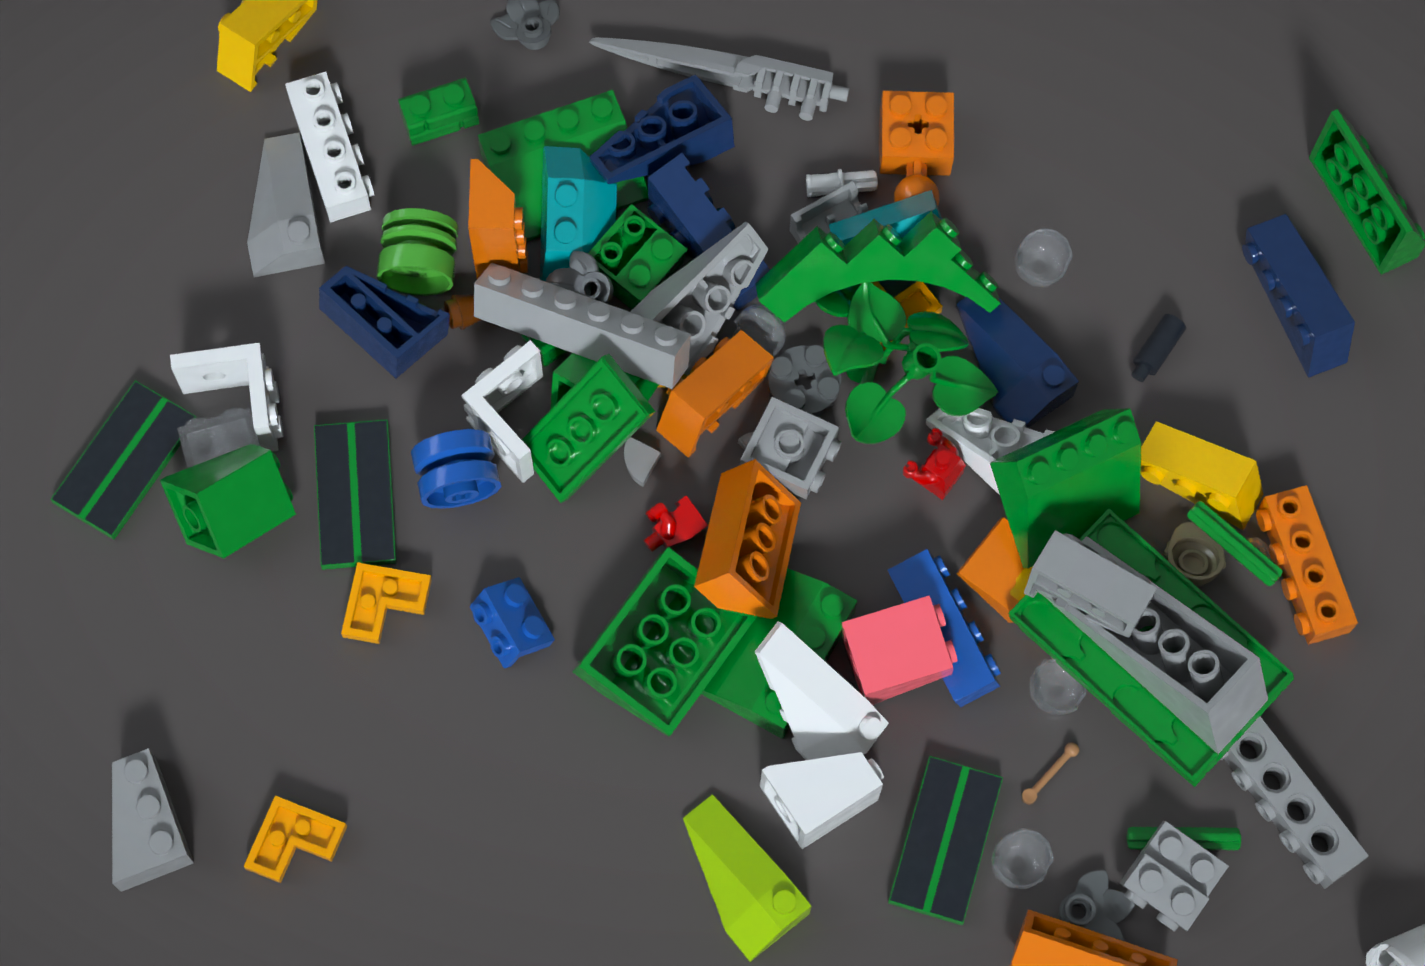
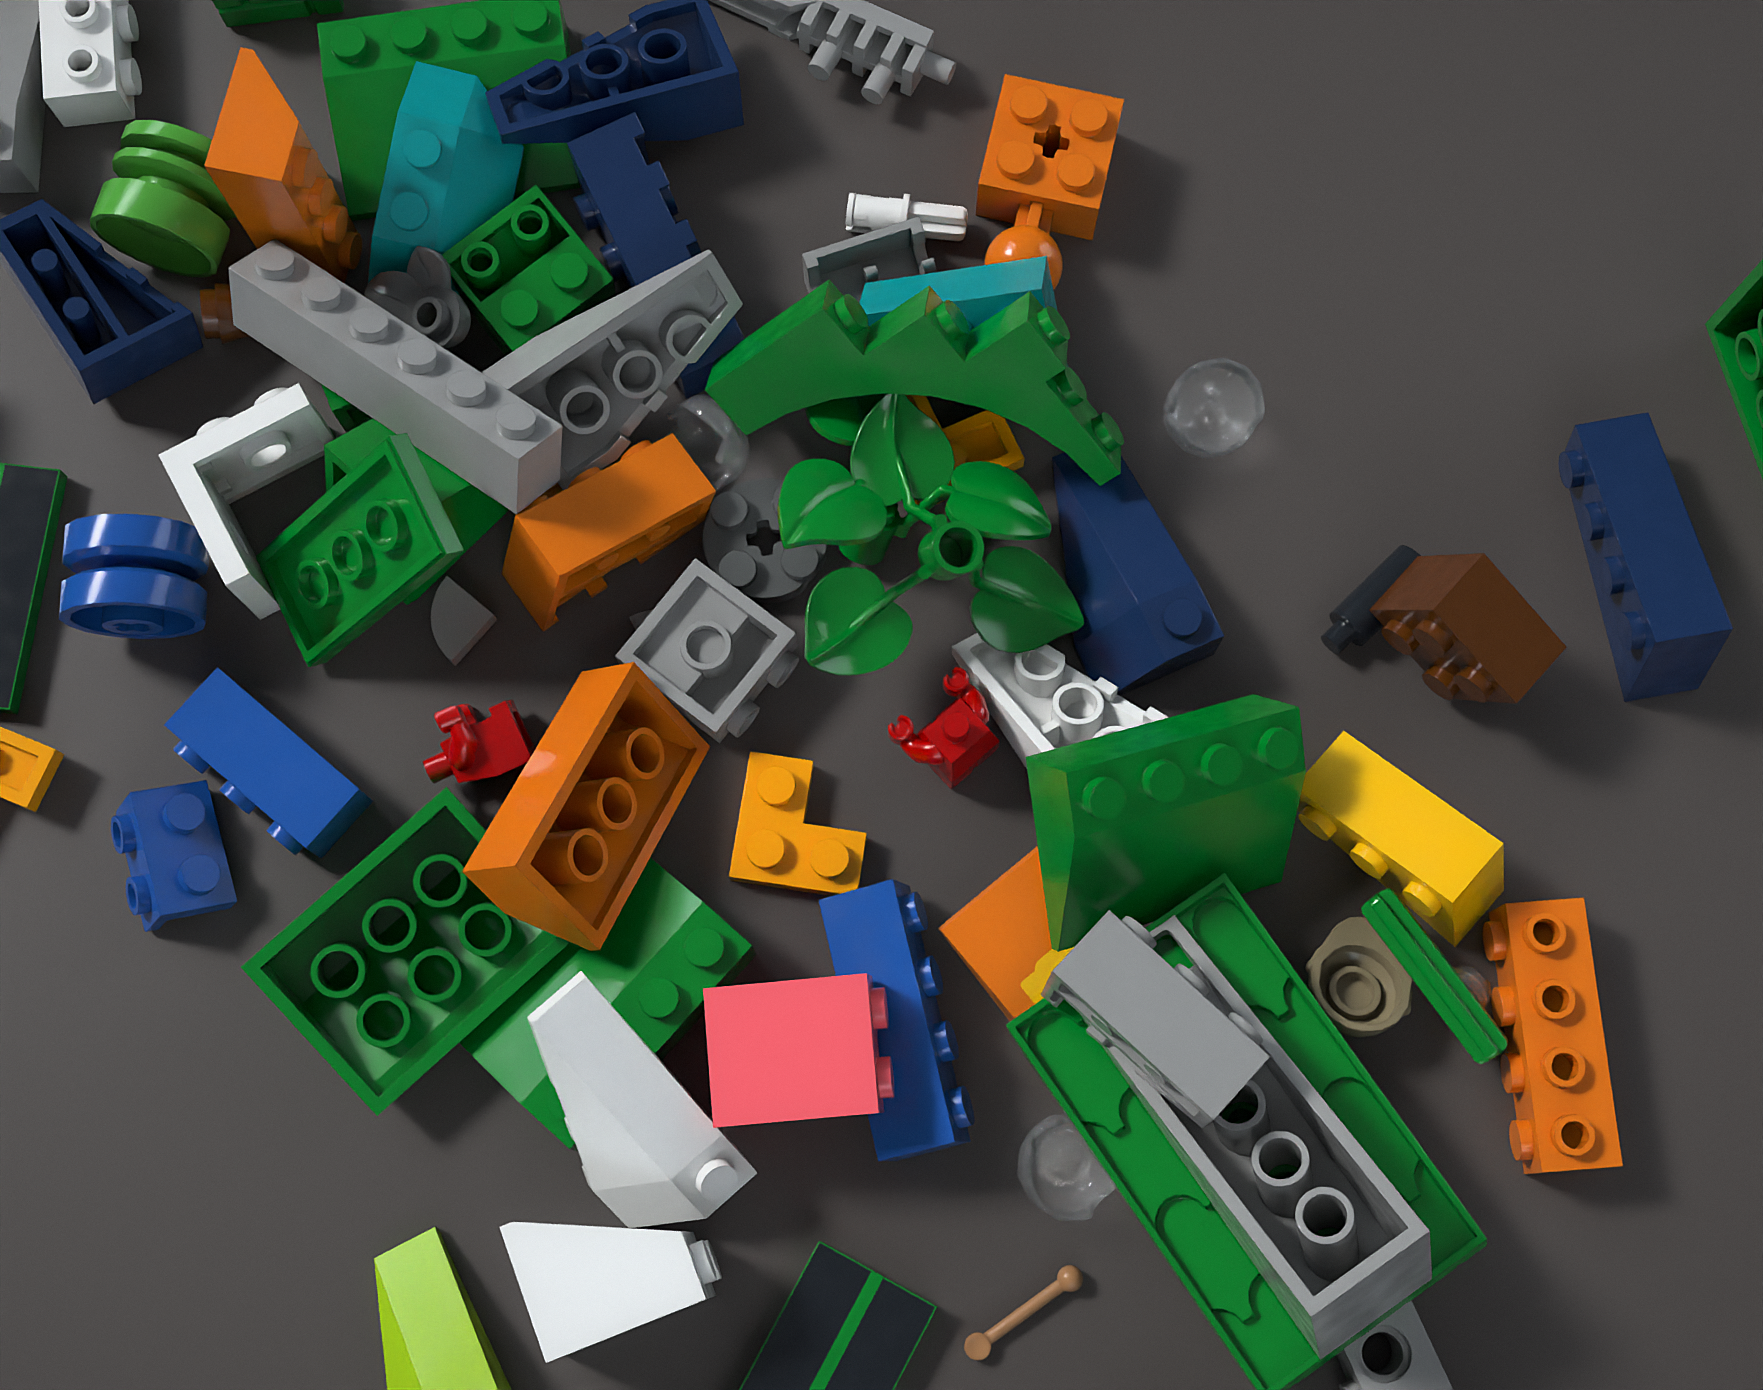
camera: 15 degrees right, 5 degrees up
(554, 560) = (266, 766): none -> blue brick
(853, 549) = (775, 843): none -> light orange plate
(1211, 351) = (1467, 628): none -> reddish brown brick

